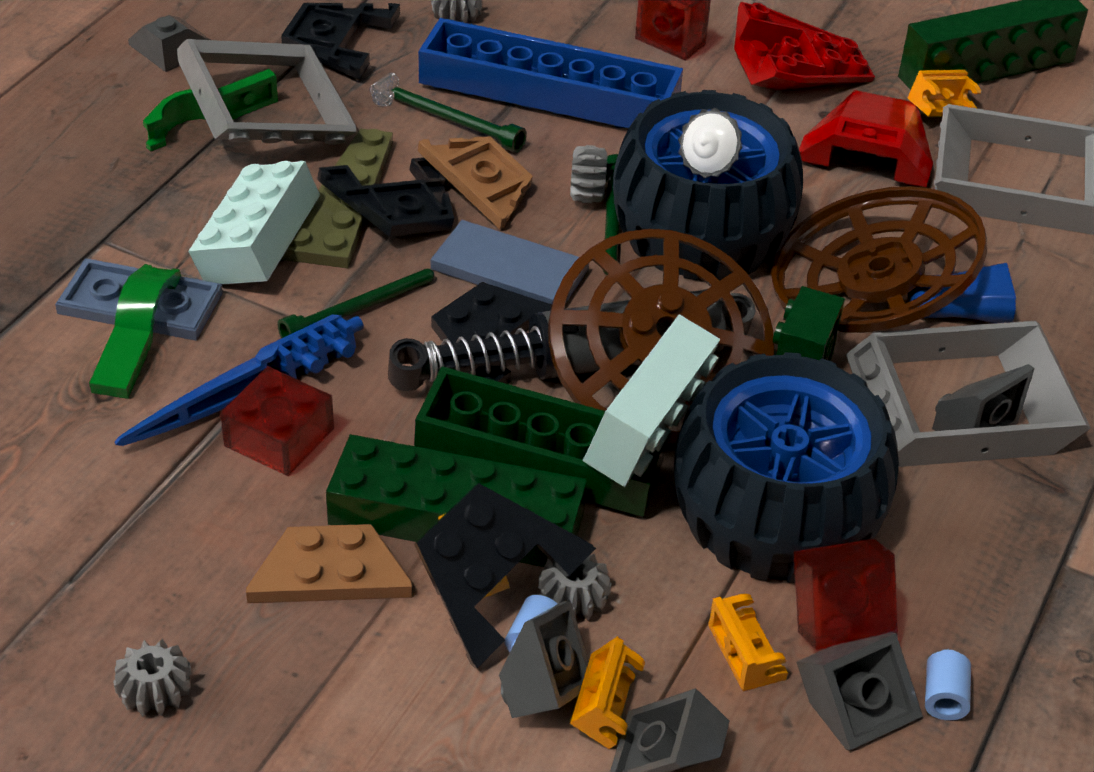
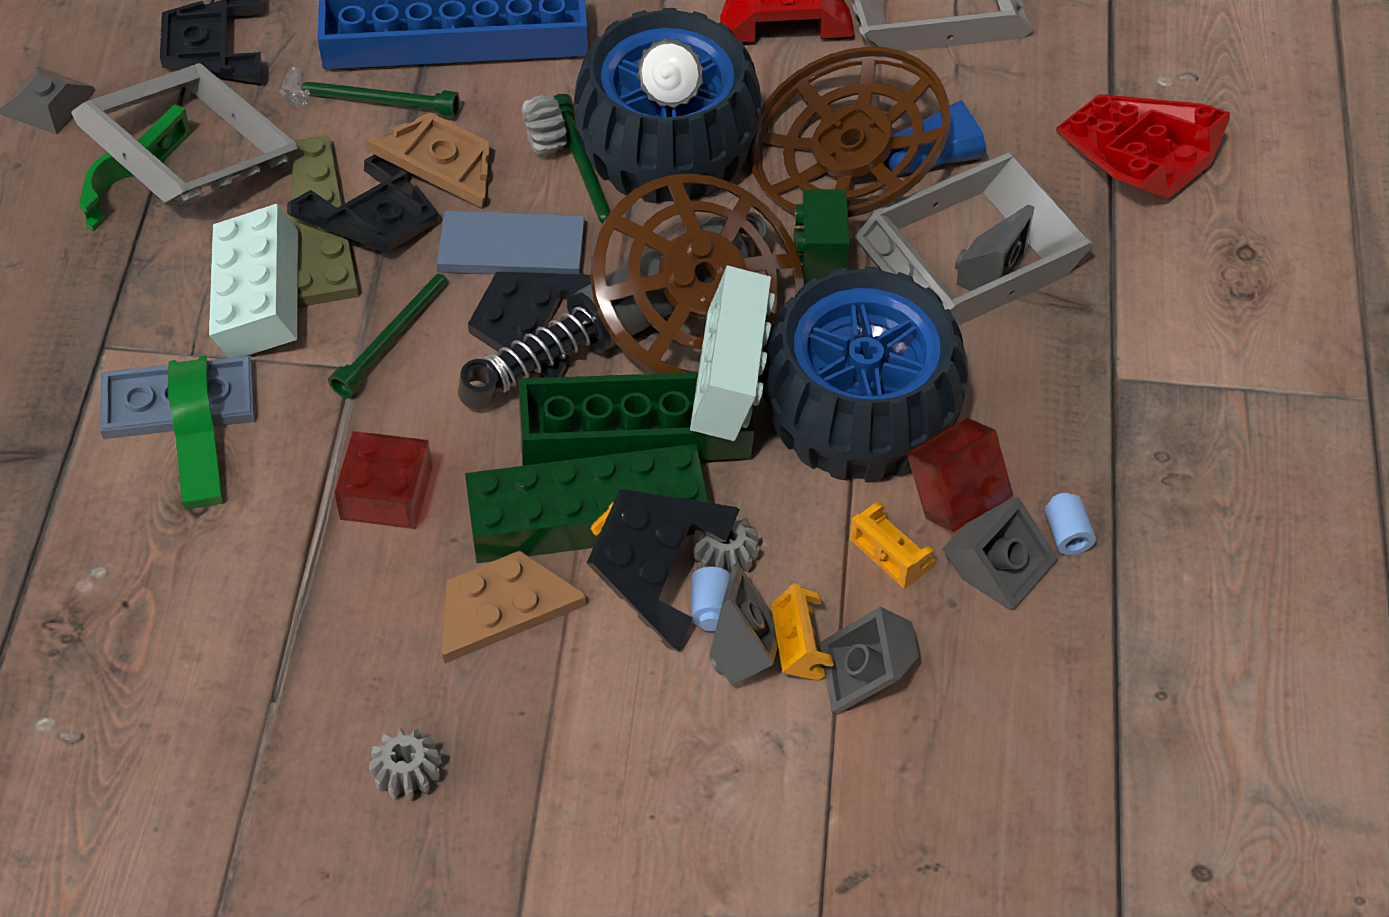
camera: 20 degrees left, 10 degrees up
(300, 350) = (364, 400): blue piece -> none

